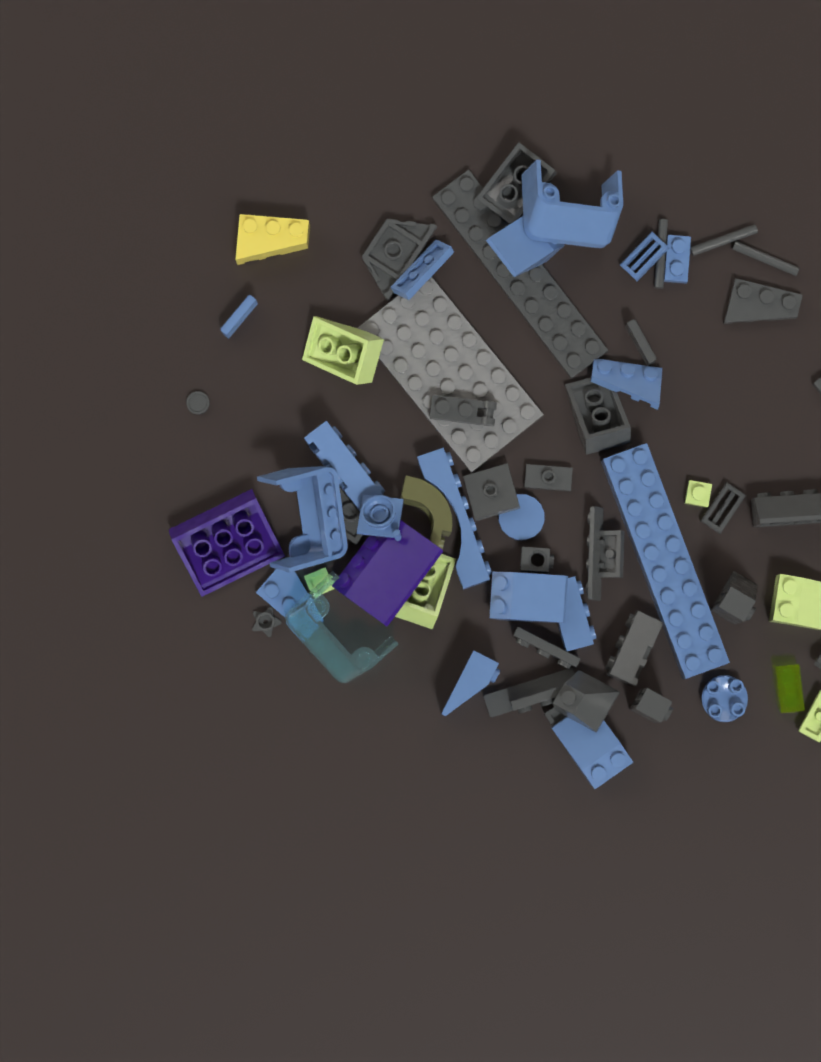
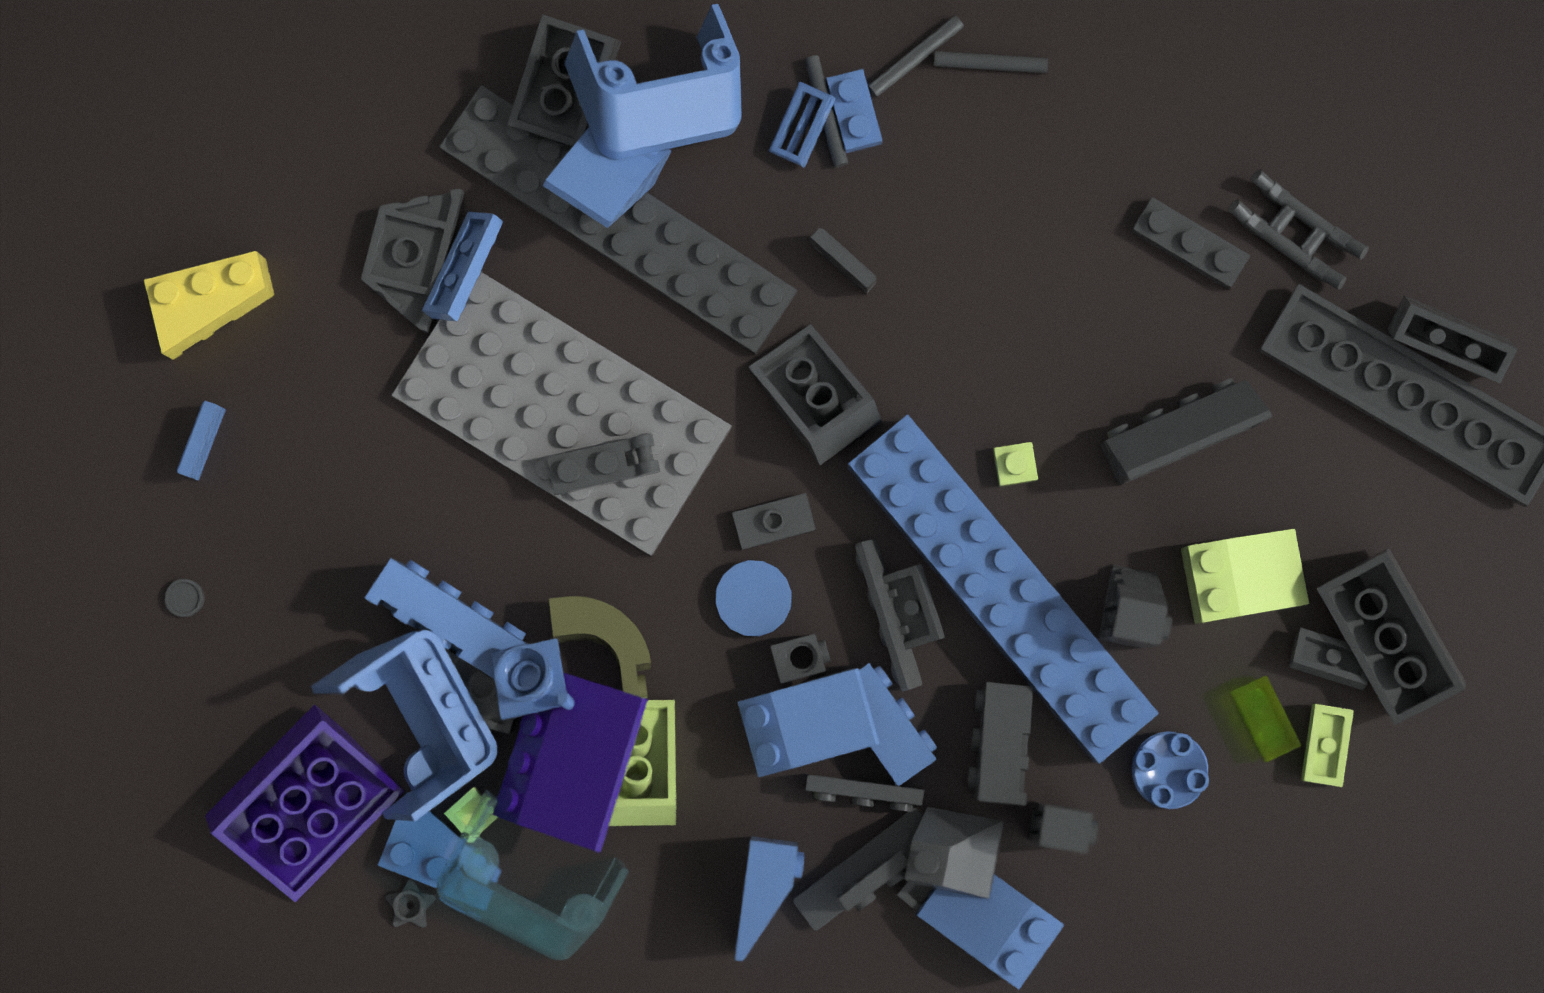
camera: 20 degrees left, 0 degrees up
(343, 350) = (382, 436): yellowish green slope -> none
(437, 472) = (598, 575): medium blue arch -> none
(491, 492) = (693, 576): dark grey plate -> none
(633, 379) = (854, 321): medium blue wing -> none
(712, 524) = (1054, 504): dark grey tile -> none
(760, 302) = (1006, 133): dark grey wing -> none

